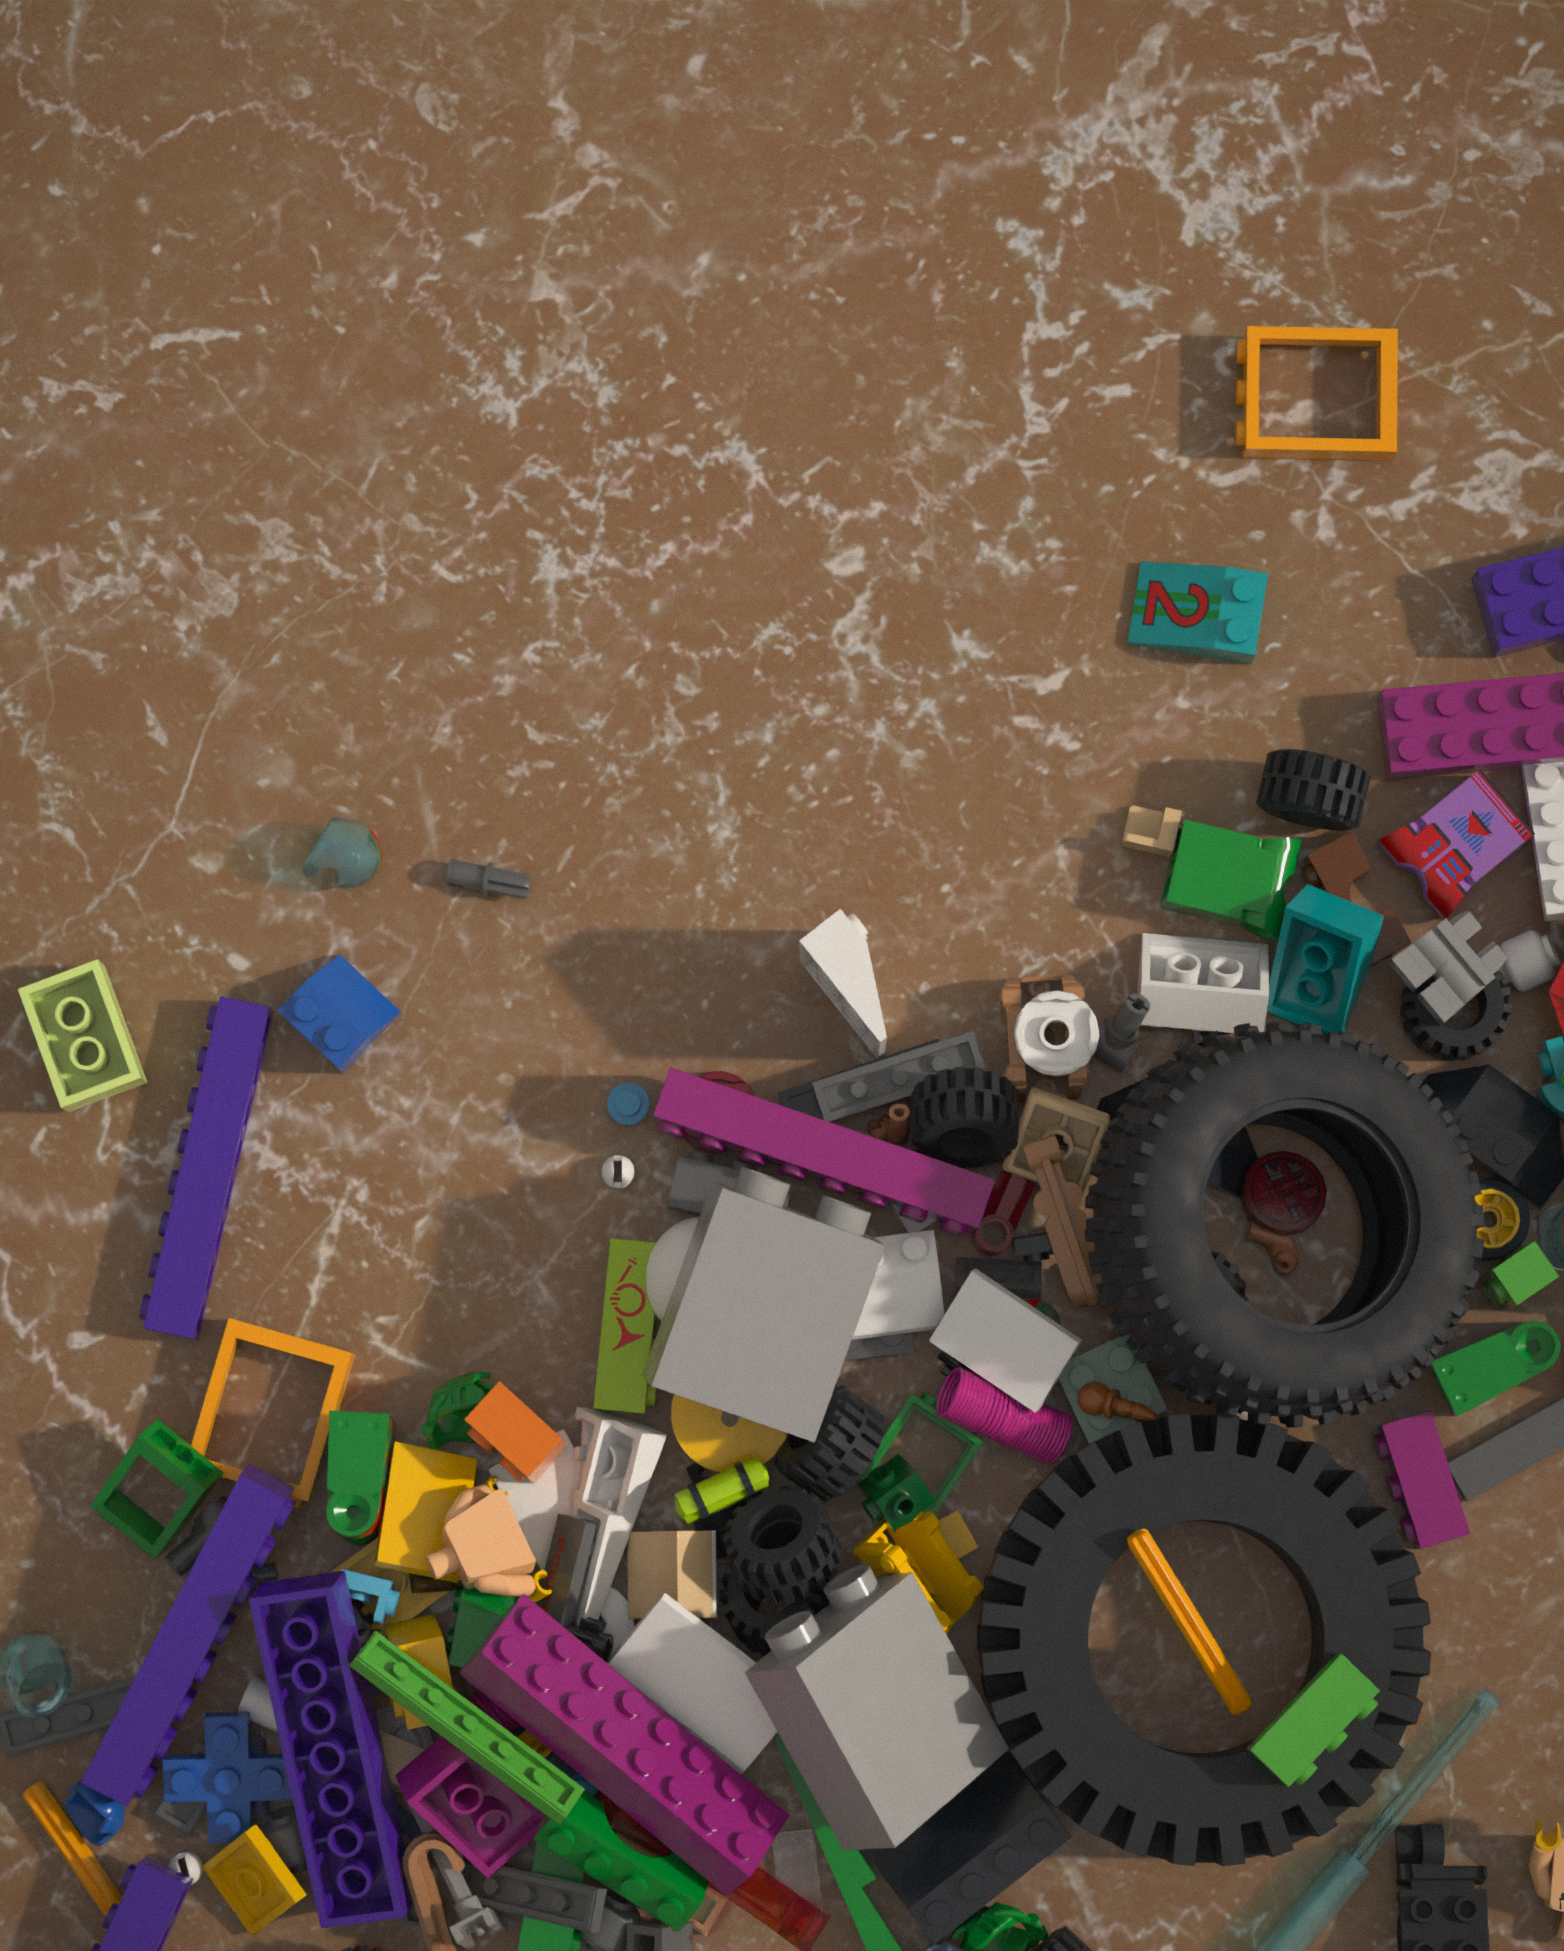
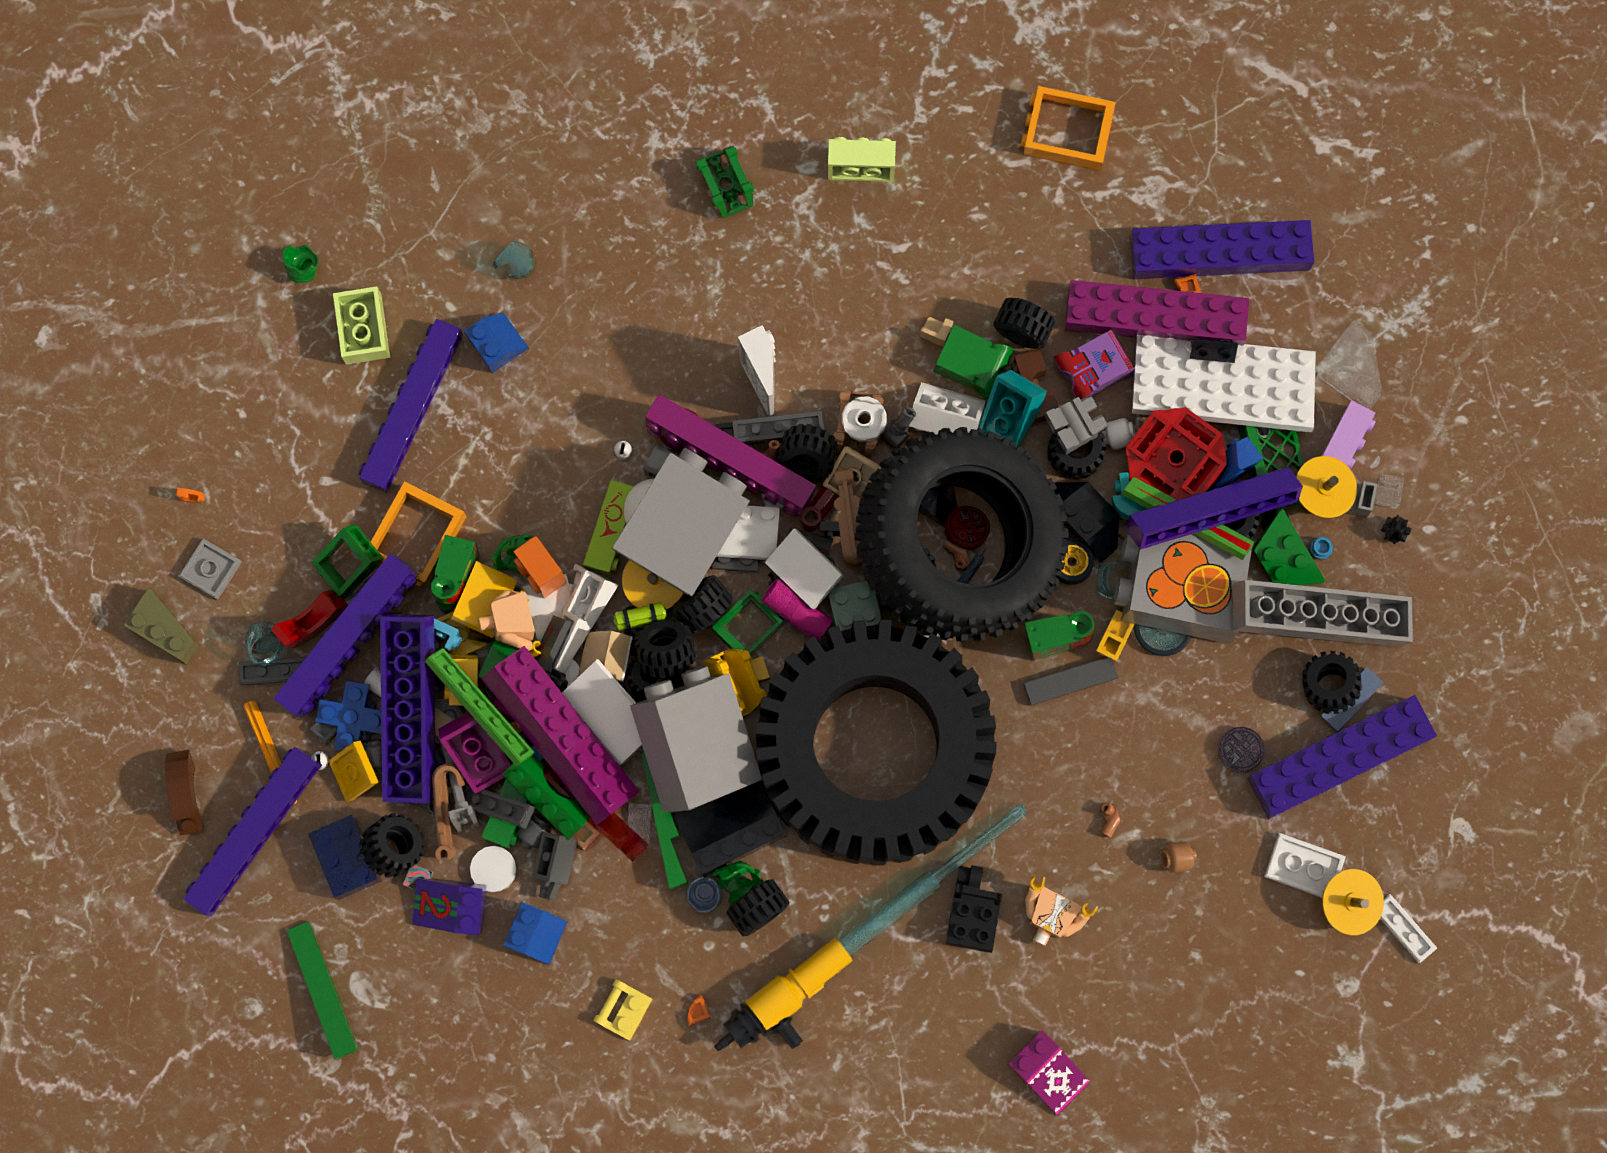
camera: 10 degrees right, 5 degrees down
(94, 1813) = (279, 720): blue hair -> none
(111, 1615) = (311, 621): none -> red arch
(488, 879) = (587, 288): dark grey axle -> none
(628, 1104) = (635, 416): dark azure plate -> none
(714, 604) = (734, 174): none -> green piece
(894, 1493) = (729, 635): dark green brick -> none
(948, 533) = (861, 159): none -> yellowish green brick
(1096, 1398) = (847, 610): dark orange bar -> none
(1189, 1621) = (869, 728): light orange axle -> none
(1198, 610) = (984, 224): teal slope -> none
(1303, 1274) = (972, 567): none -> sand blue piece
(1315, 1721) = (923, 789): bright green brick -> none
(1421, 1480) = (1009, 688): magenta brick -> none
(1518, 1276) = (1081, 592): bright green brick -> none

